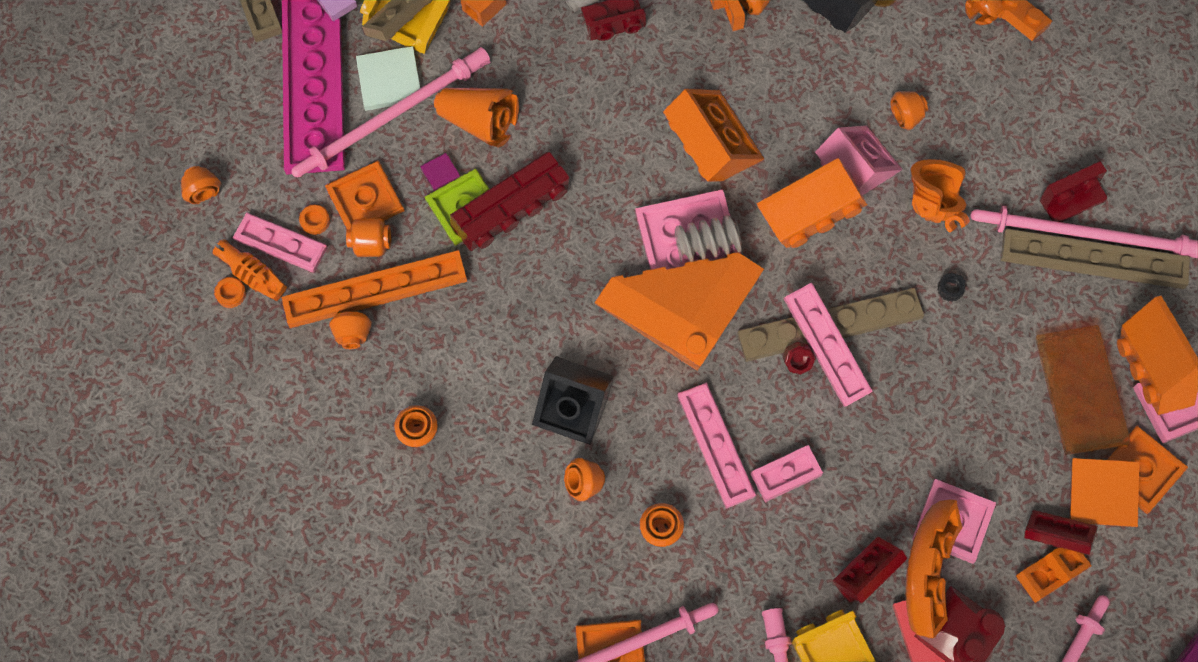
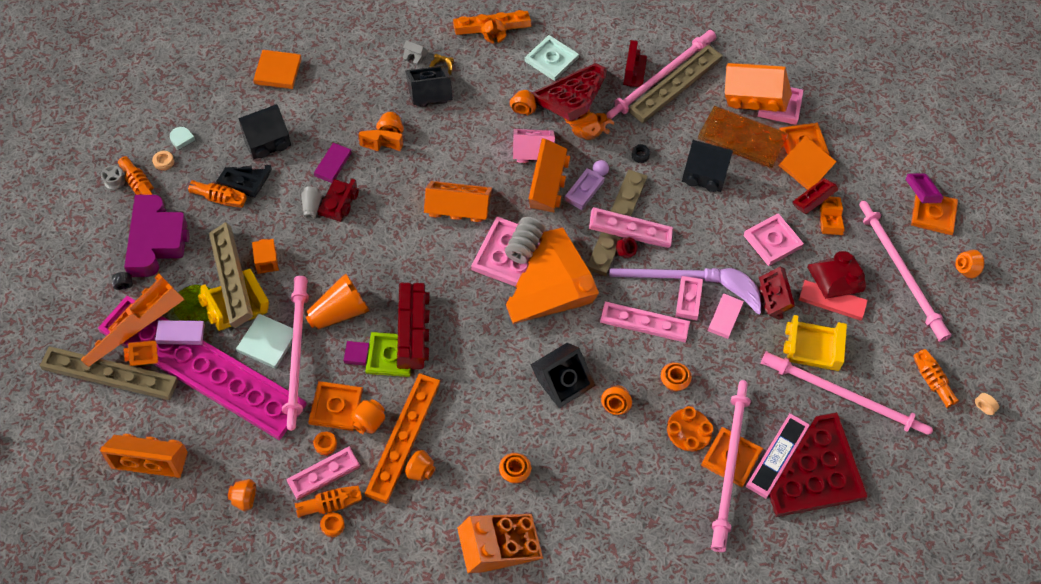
camera: 60 degrees left, 10 degrees down
(176, 64) = (145, 455): none -> orange slope
(324, 471) = (498, 541): none -> orange slope
(609, 585) = (689, 429): none -> orange dish
(797, 532) = (725, 316): none -> bright pink tile
(852, 257) = (587, 185): none -> lavender plate
(854, 505) = (730, 278): none -> lavender piece
(923, 583) = (798, 262): orange brick -> none
(962, 150) = (572, 94): none -> dark red plate
(988, 374) = (707, 166): none -> black slope
(1007, 95) = (551, 57): none -> light aqua tile

